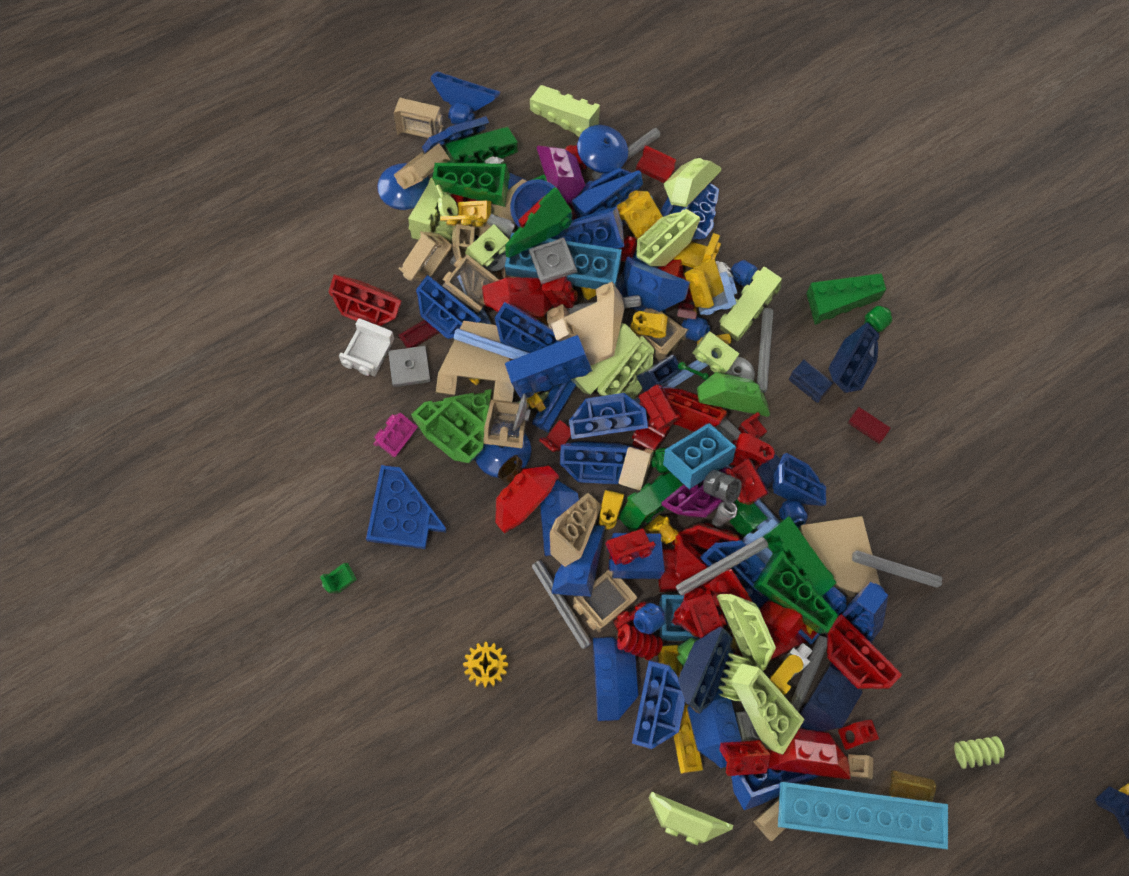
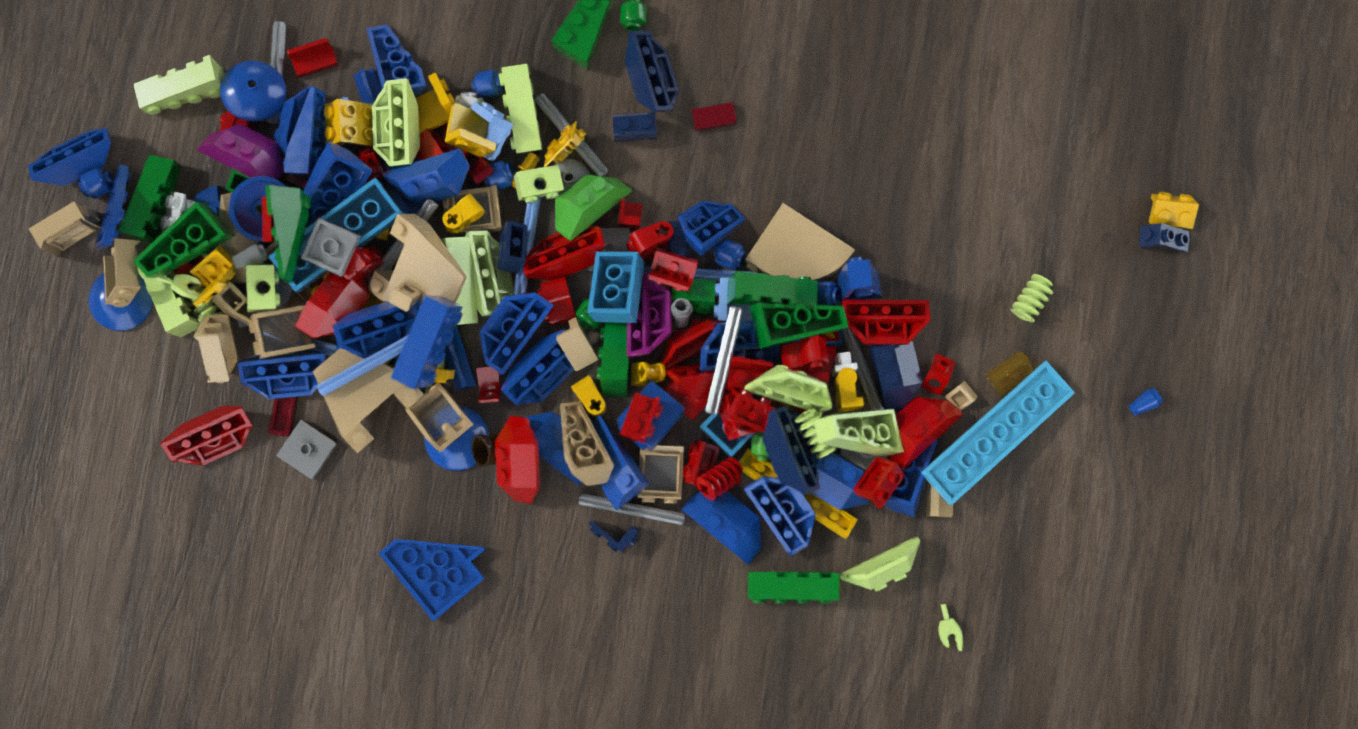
camera: 45 degrees left, 15 degrees up
(338, 579) = (447, 673): green bracket -> none
(367, 348) = (257, 472): white panel -> none
(395, 434) = (360, 516): dark pink bracket -> none
(455, 424) = (400, 458): bright green wedge -> none
(494, 664) = (633, 607): yellow gear -> none
(522, 413) = (446, 400): light grey dish -> none
(539, 619) = (628, 539): none -> dark blue bracket
(612, 764) = (792, 585): none -> green wedge
(649, 618) = (711, 455): blue head -> none
(659, 407) = (544, 279): red brick -> none
(682, 365) = (524, 222): green hinge -> none
(690, 181) = (358, 47): yellowish green wedge -> none
(722, 486) = (660, 295): dark grey wheel -> none
(762, 347) = (560, 149): none -> yellow hinge
(896, 568) = (847, 218): light grey axle -> none

